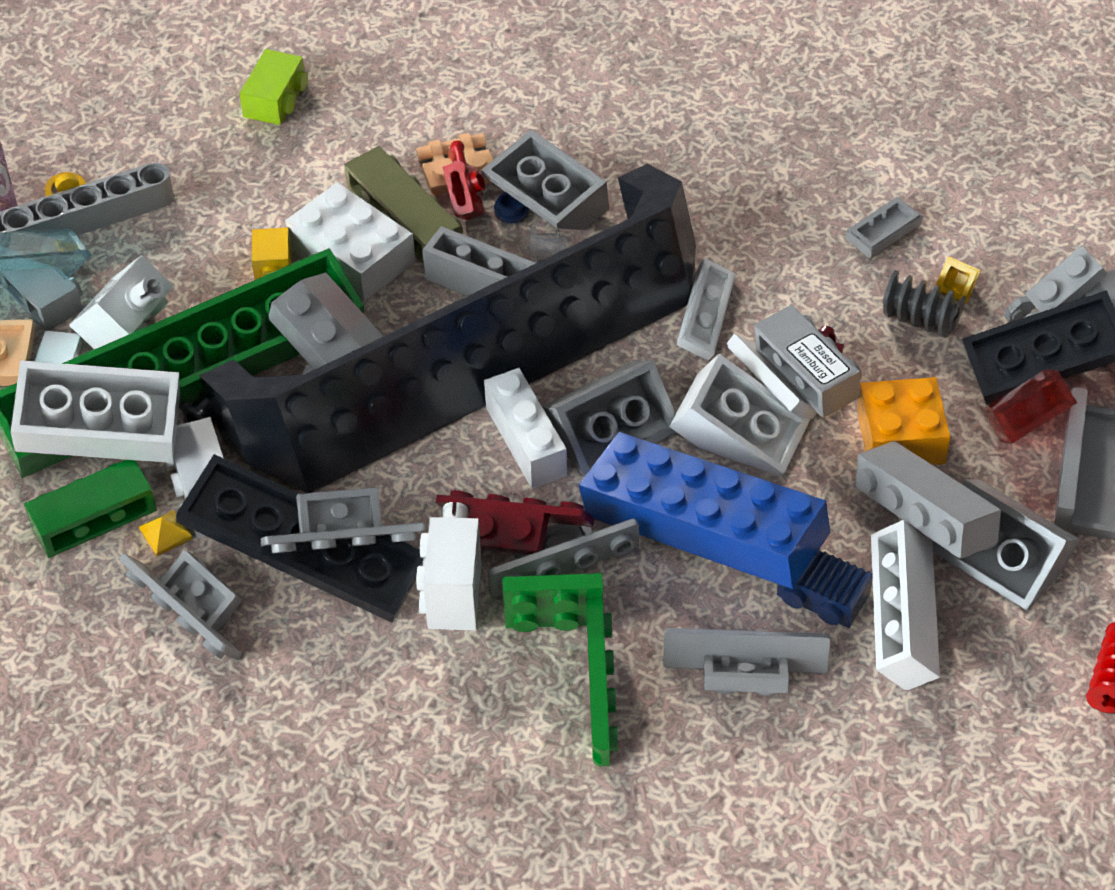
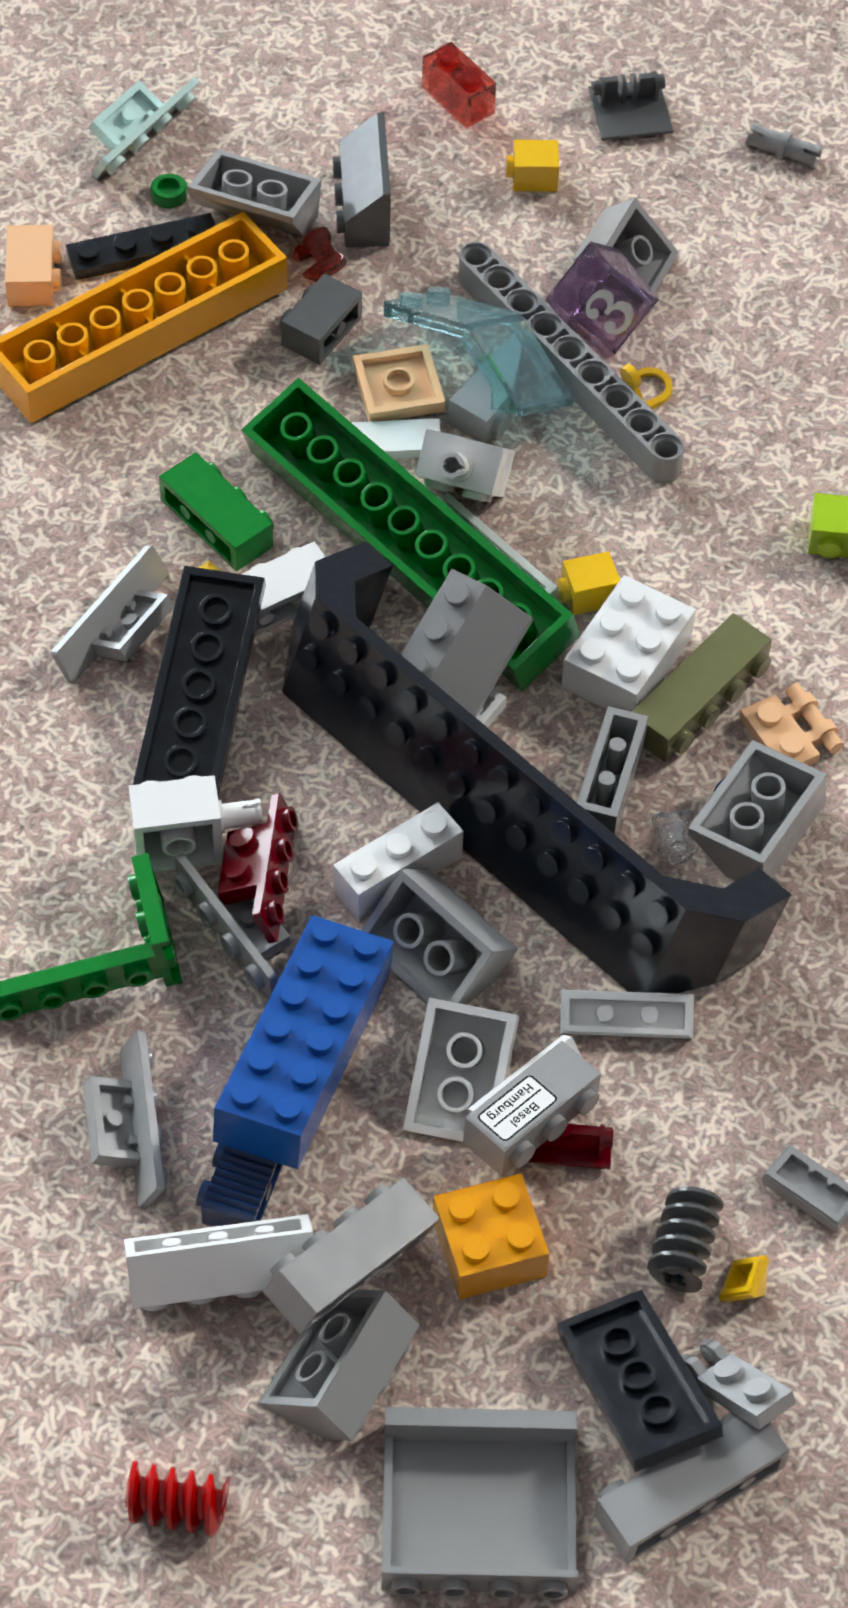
camera: 75 degrees right, 5 degrees up
(95, 411) = (290, 467): white brick -> none
(338, 516) = (210, 706): light grey bracket -> none
(464, 184) = (734, 731): red piece -> none
(1028, 406) = (533, 1362): clear red brick -> none

